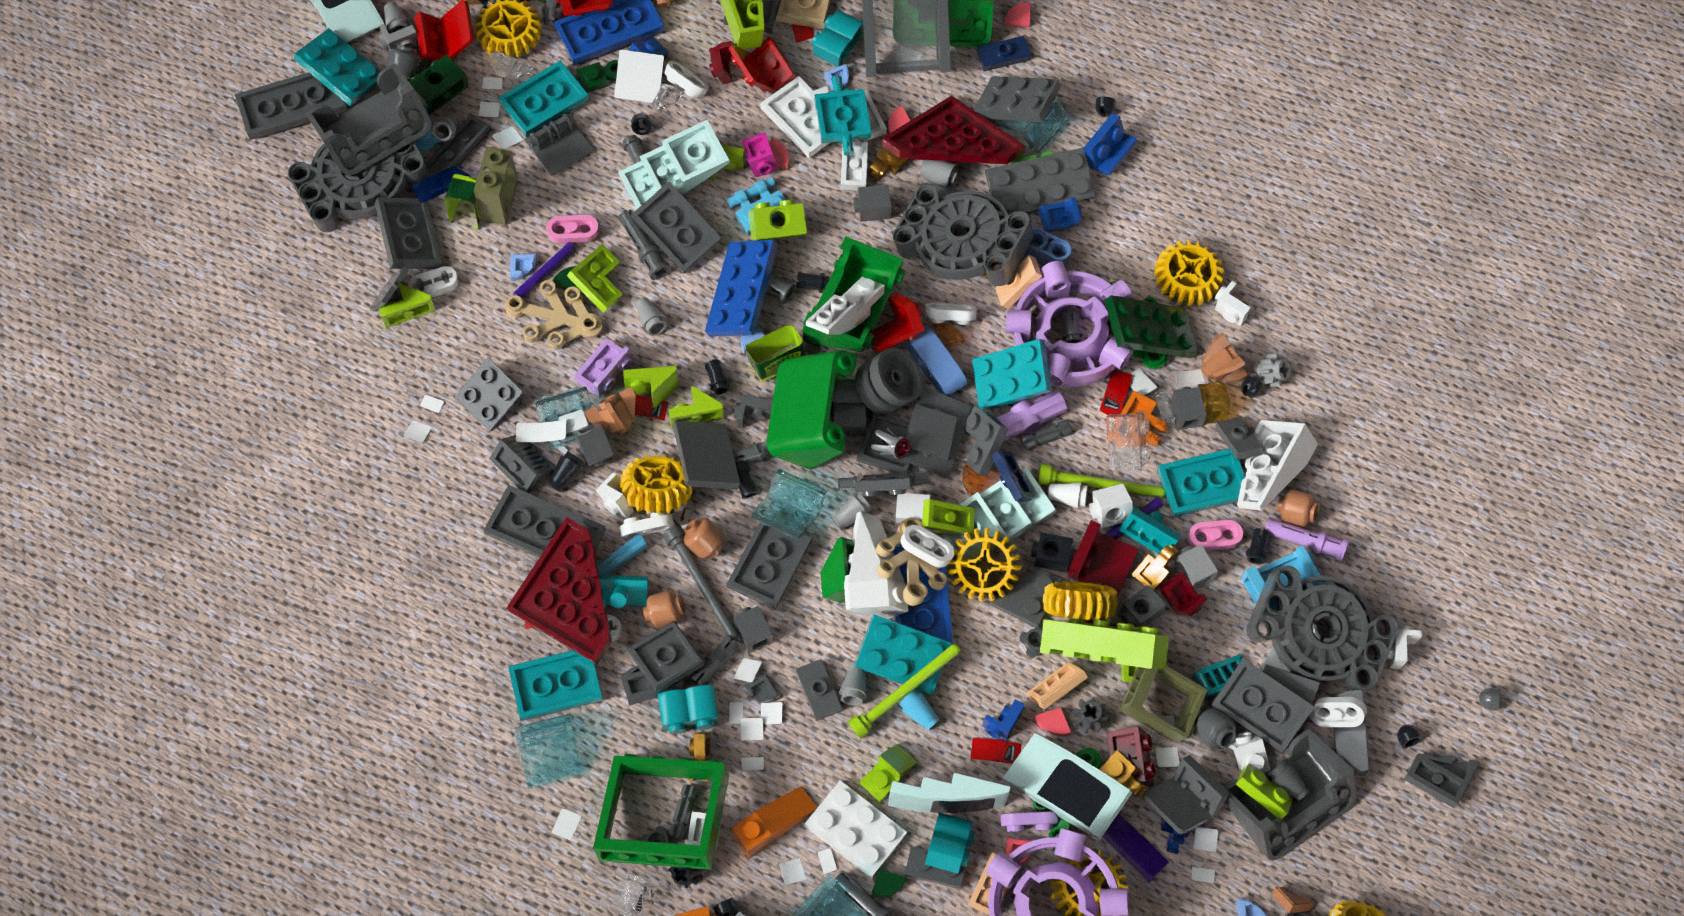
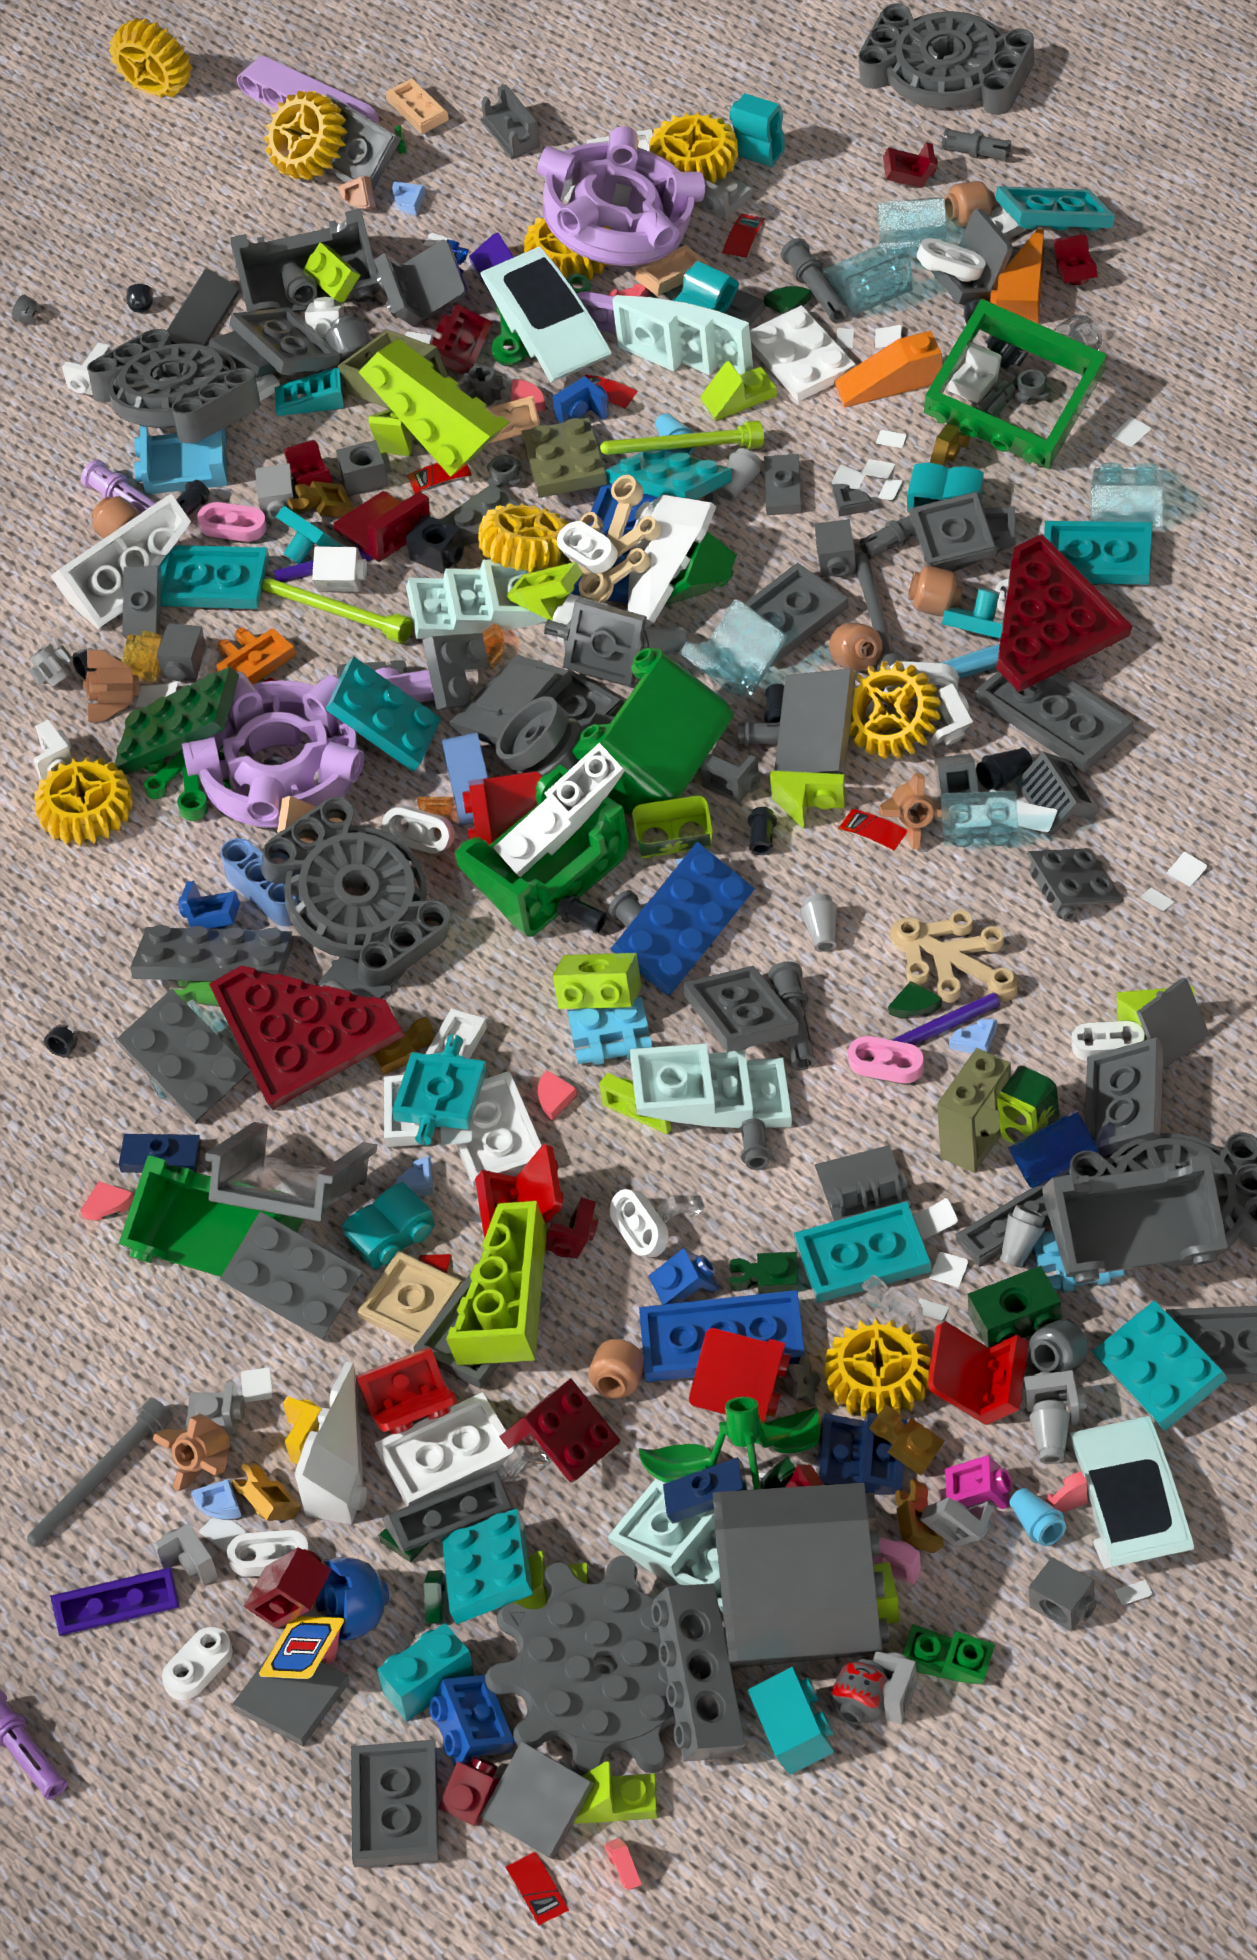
camera: 150 degrees left, 15 degrees down
(592, 280) = (883, 981): lime plate -> none
(603, 367) = (907, 870): lavender bracket -> none
(635, 124) = (731, 1180): black hinge -> none
(638, 76) = (707, 1241): white sticker -> none
(655, 380) = (843, 836): lime slope -> none
(747, 670) = (860, 519): white sticker -> none
(760, 155) = (579, 1084): dark pink bracket -> none
(873, 203) = (451, 985): dark grey brick -> none
(897, 119) = (361, 1093): coral tile -> none
(898, 446) = (572, 665): flat silver piece -> none
(994, 661) = (564, 457): none -> olive plate
(1012, 476) = (443, 607): dark blue plate -> none
(1069, 493) = (379, 599): white cone -> none
(1080, 600) = (435, 449): yellow gear -> none
(1109, 146) = (90, 974): blue bracket -> none
(1124, 772) = (477, 320): pearl gold plate -> none
(1128, 440) = (279, 620): clear bracket -> none
(1340, 712) = (192, 314): white plate -> none
(1441, 776) = (128, 257): dark grey wing -> none

